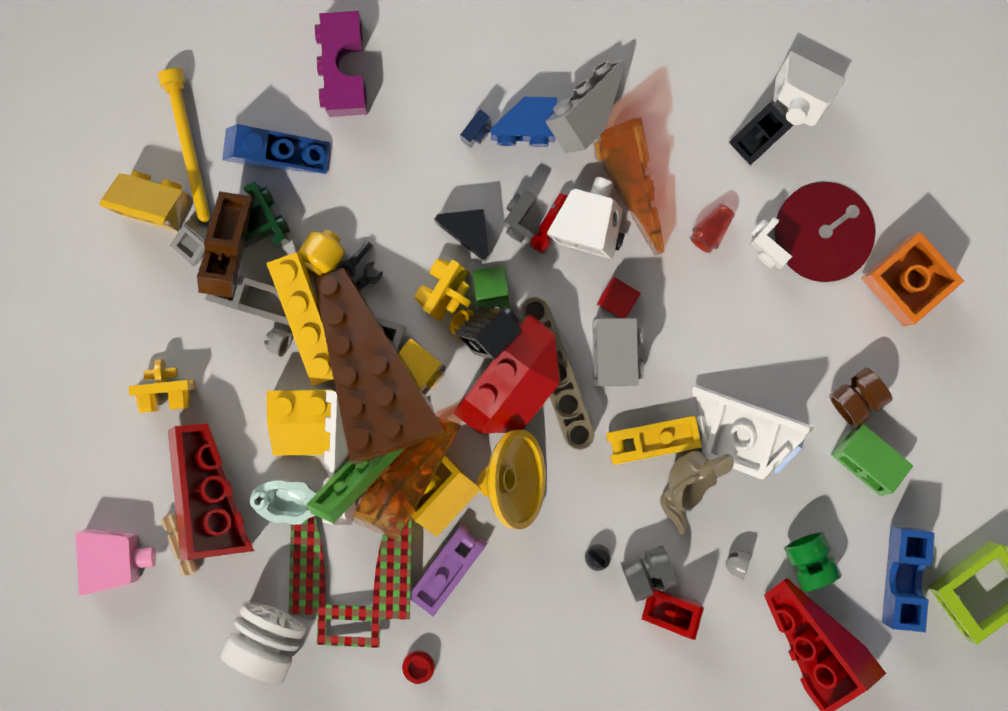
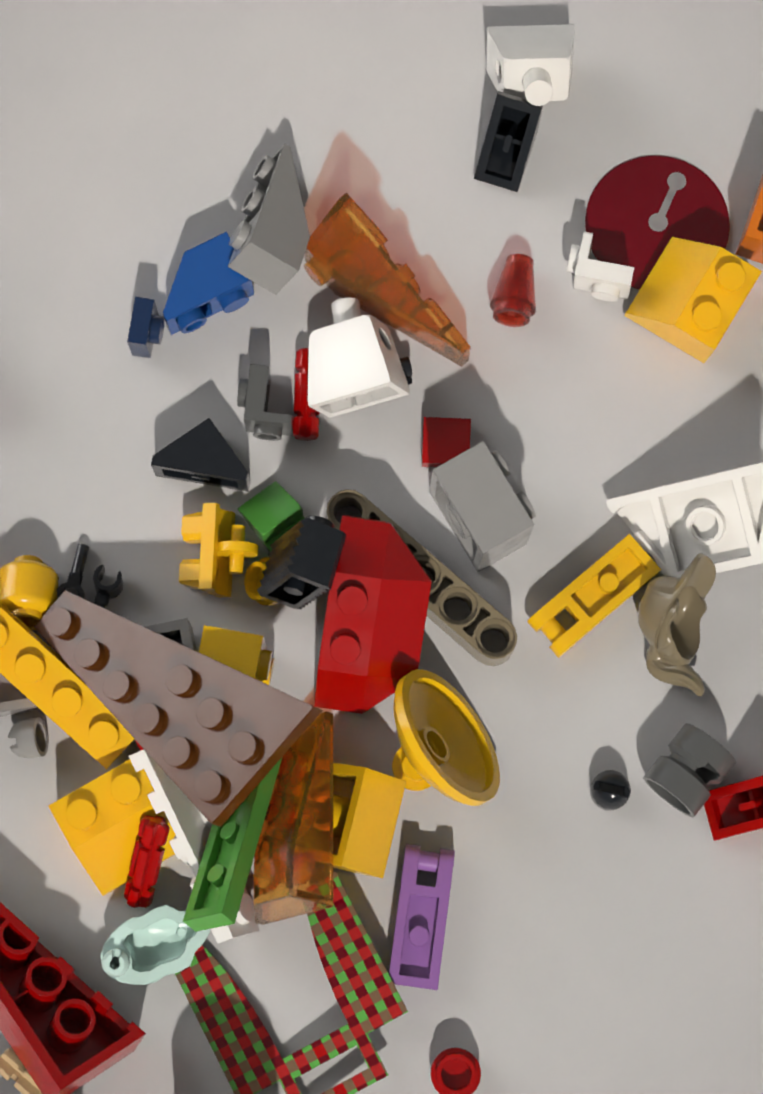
camera: 30 degrees left, 10 degrees down
(307, 452) = (146, 861): none -> red axle
(819, 291) = (693, 295): none -> yellow slope

